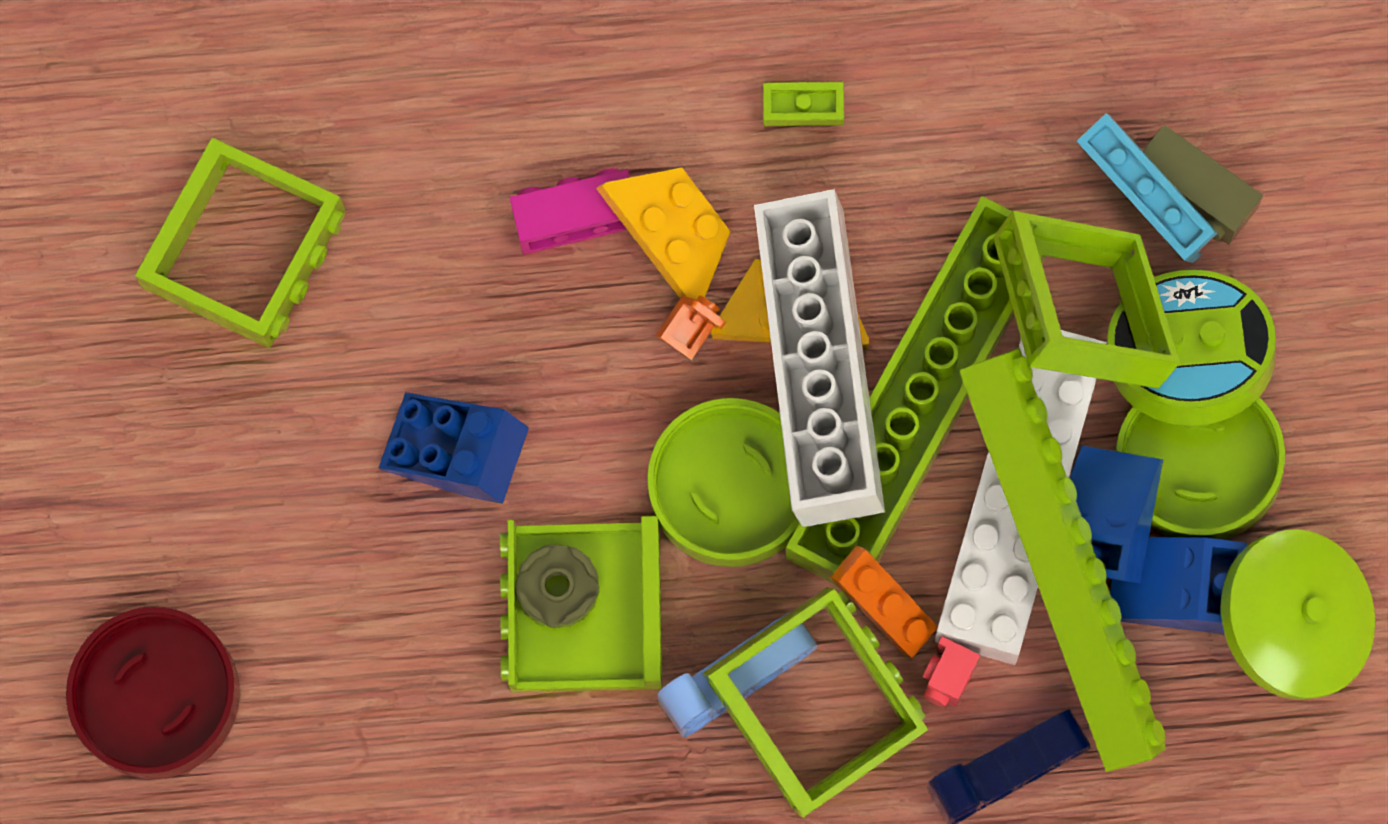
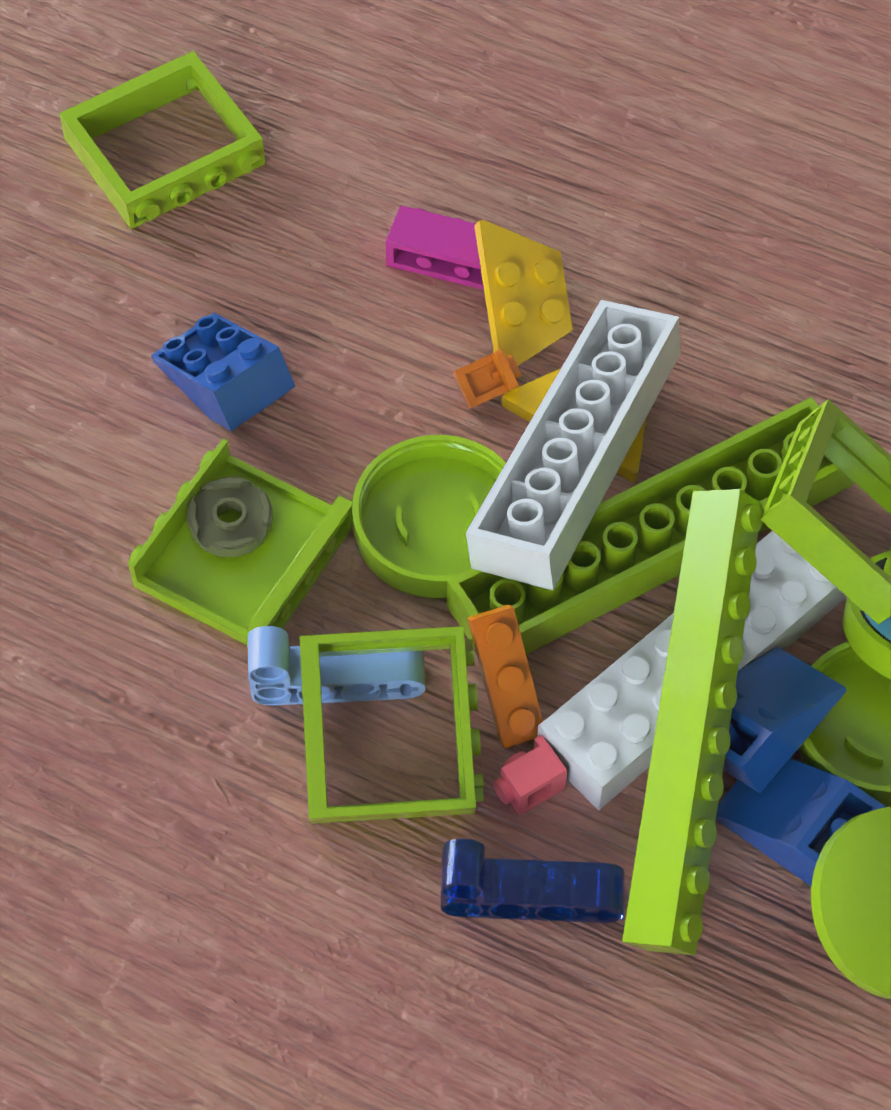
camera: 25 degrees right, 15 degrees down
(803, 104) = (700, 267): lime plate -> none

